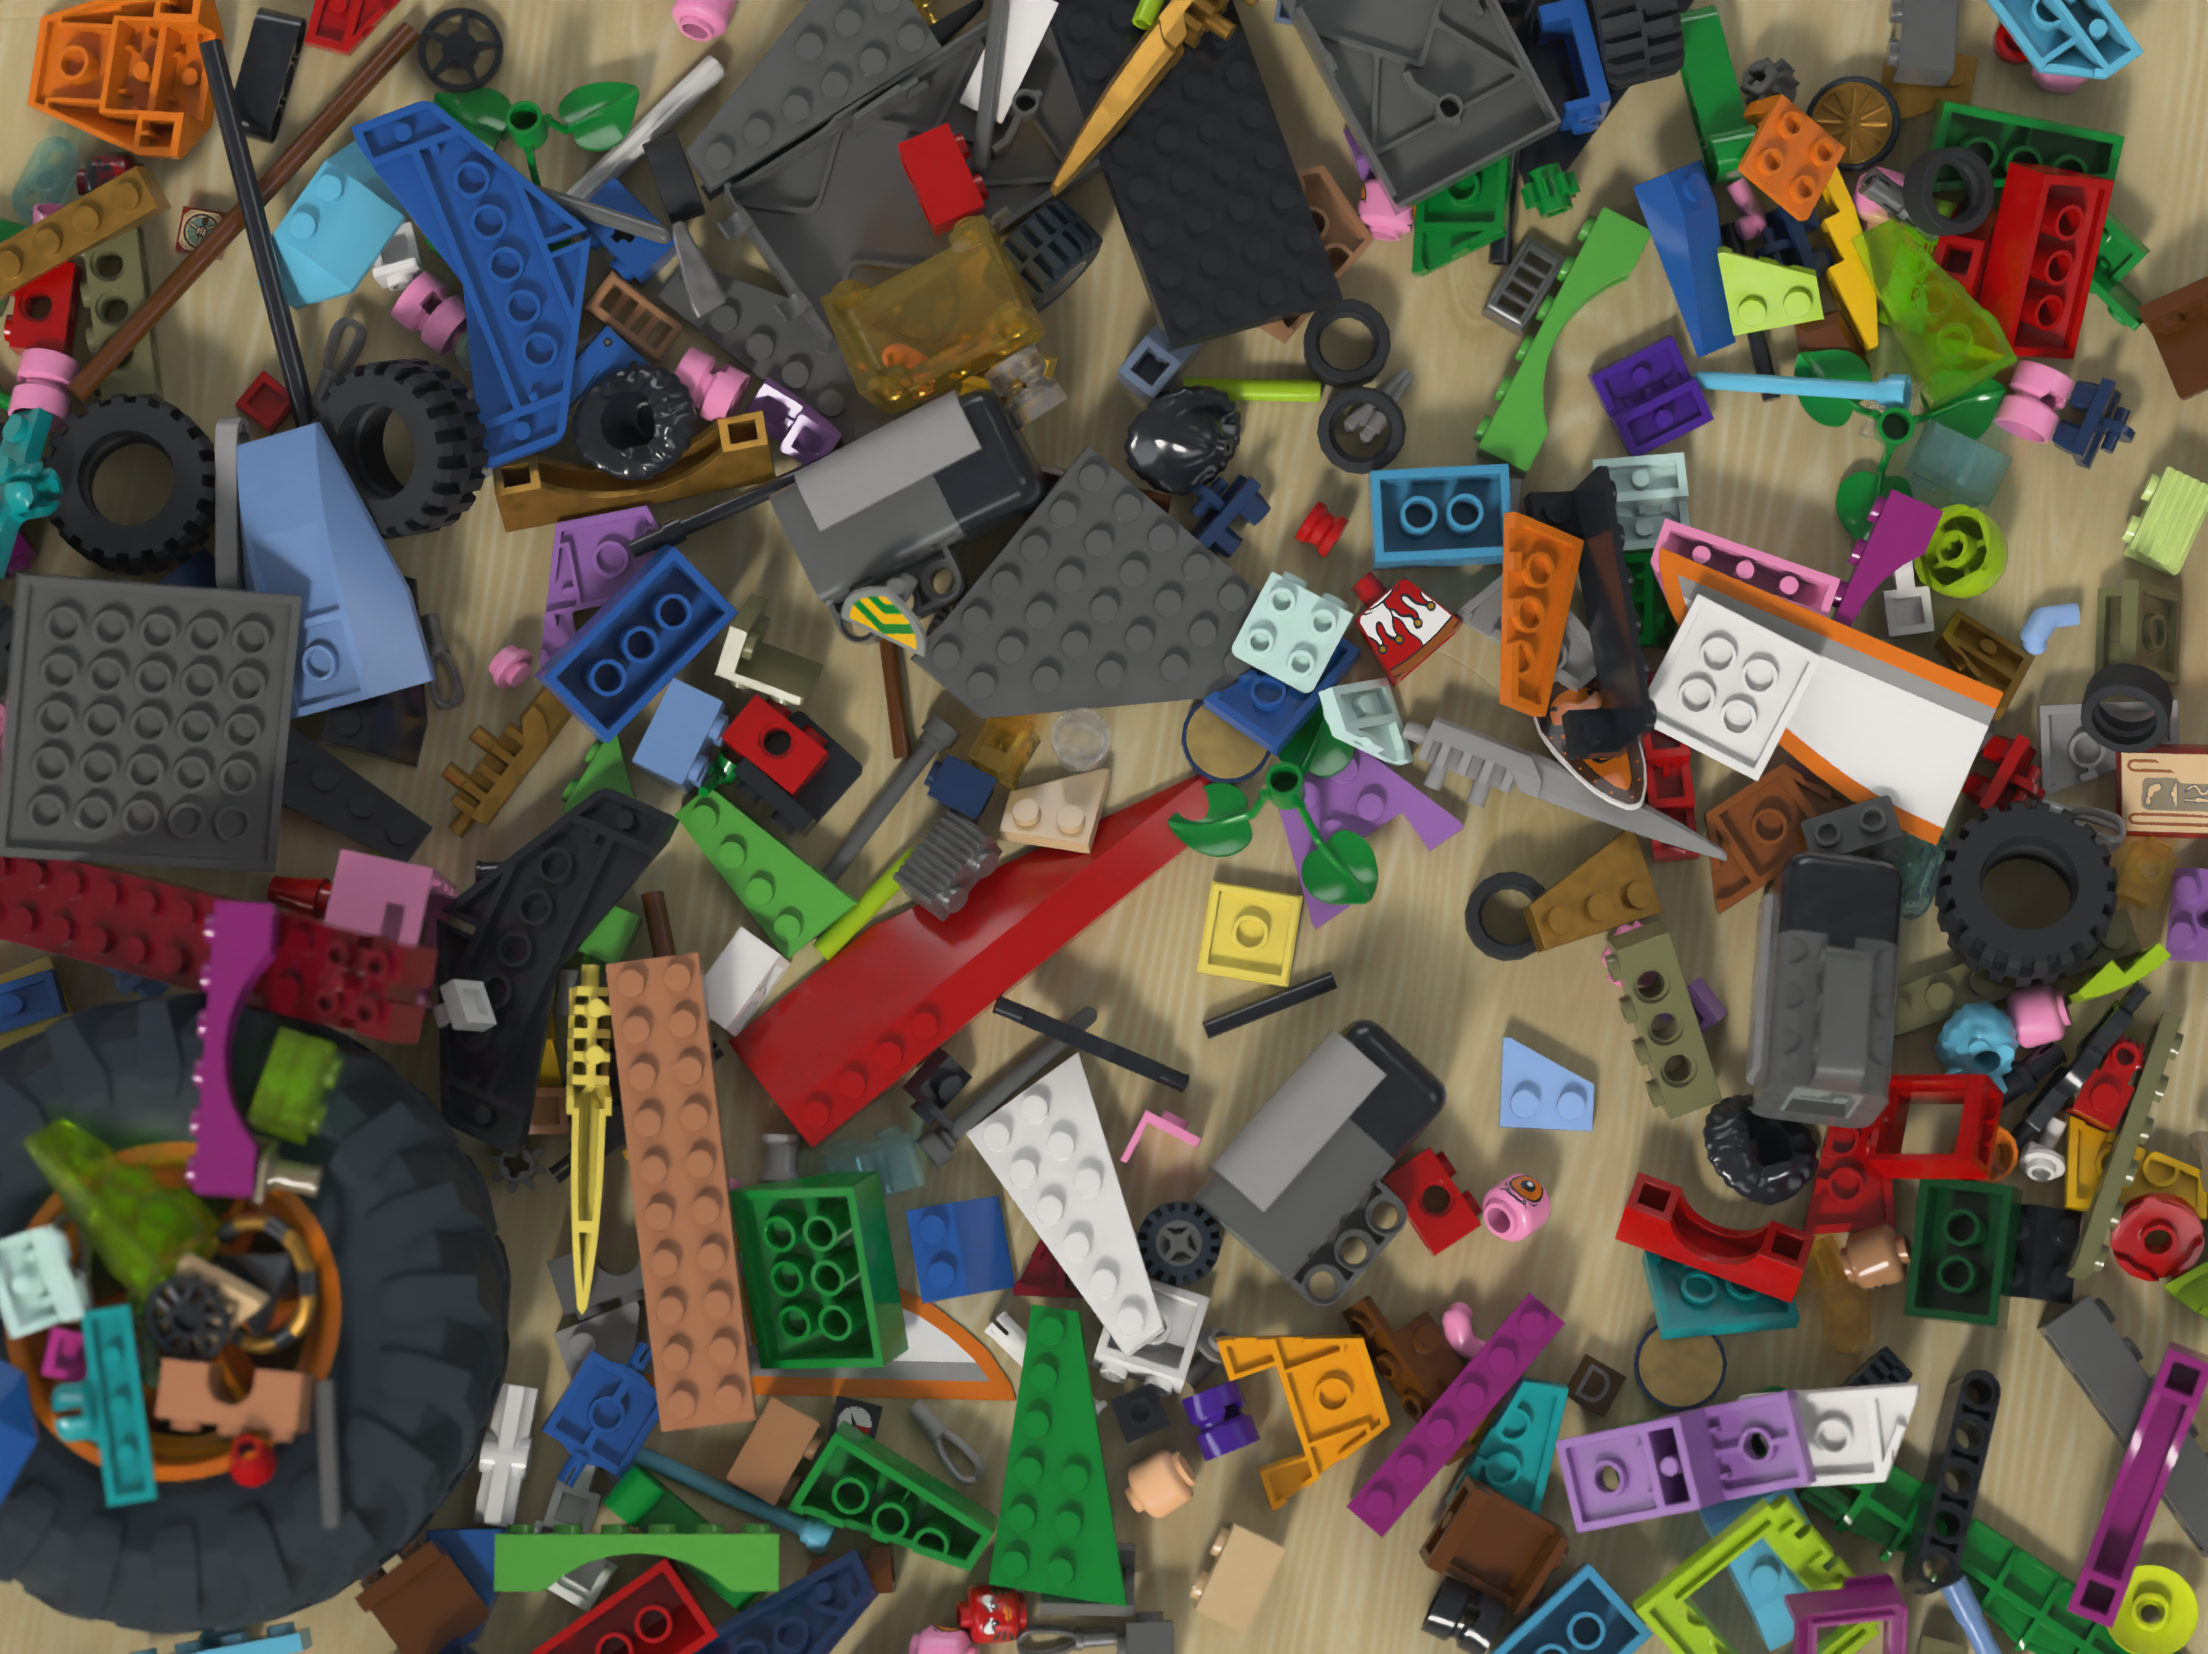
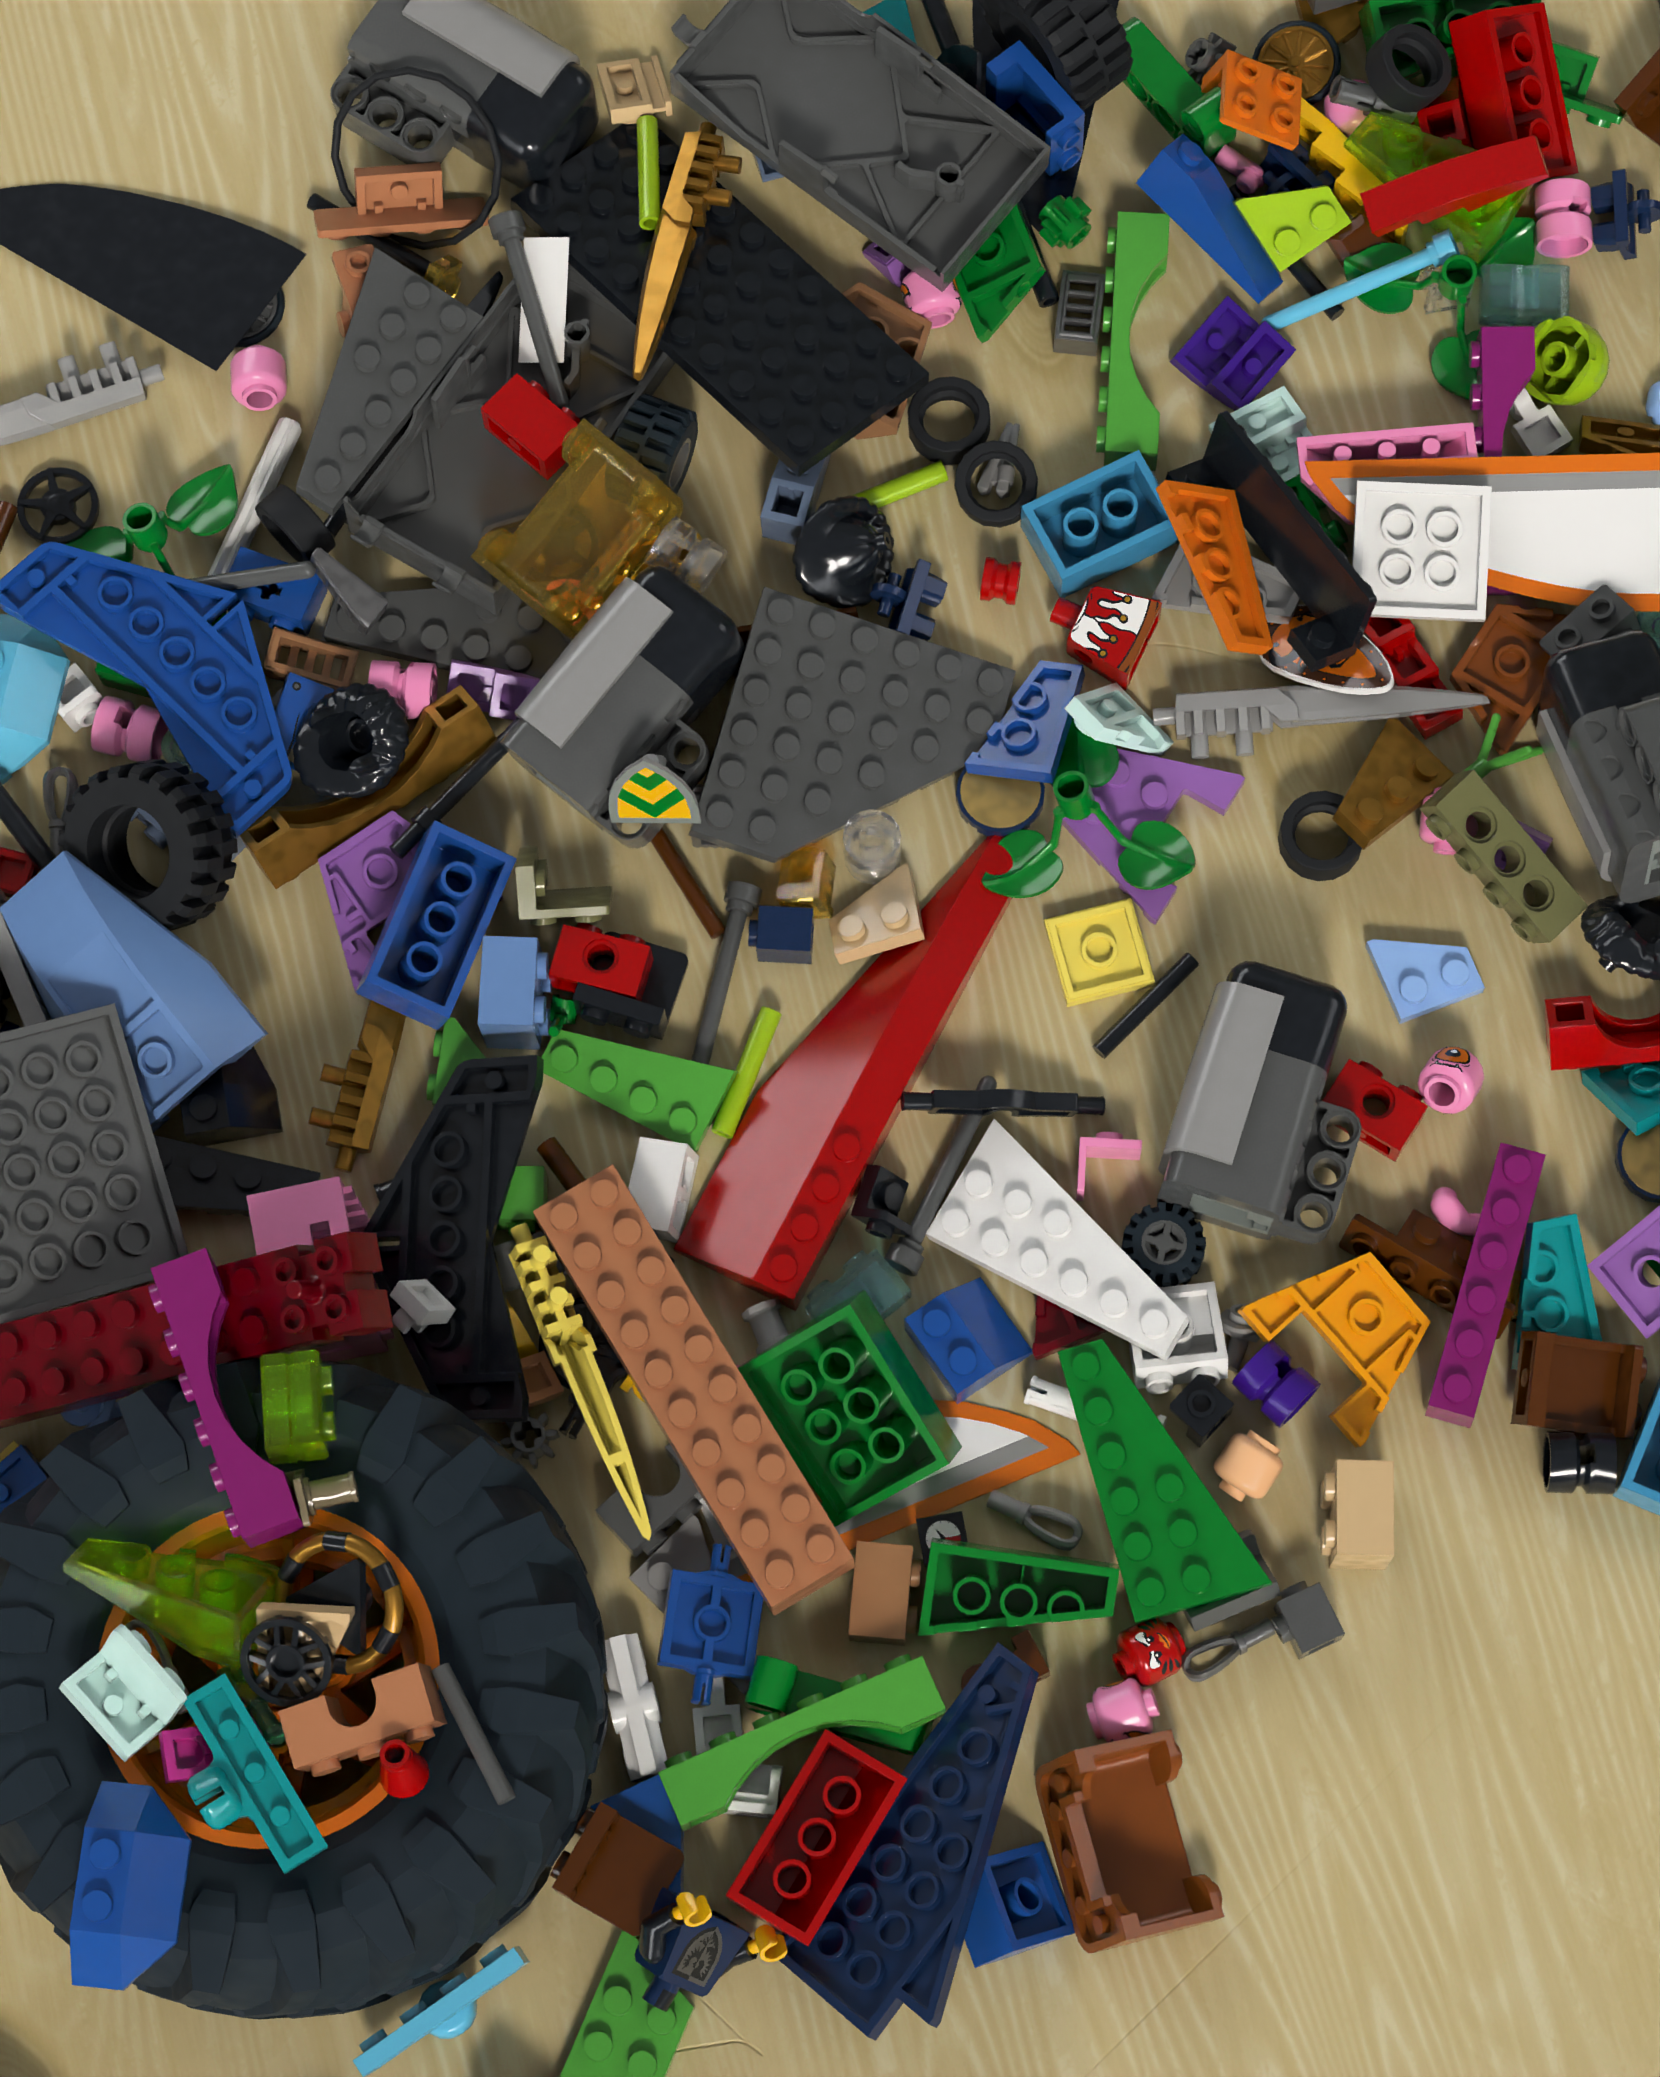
camera: 20 degrees left, 10 degrees down
(438, 649) = (264, 1019): flat silver piece -> none
(511, 667) = (330, 1004): bright pink plate -> none
(811, 1531) = (950, 1652): medium azure piece -> none
(948, 865) = (802, 1004): flat silver brick -> none
(1292, 631) = (1016, 673): light aqua bracket -> none
(1594, 1385) = (1596, 1208): dark brown tile -> none
(1692, 916) = (1484, 767): none -> bright green plant
(1933, 336) = (1454, 184): none -> red slope

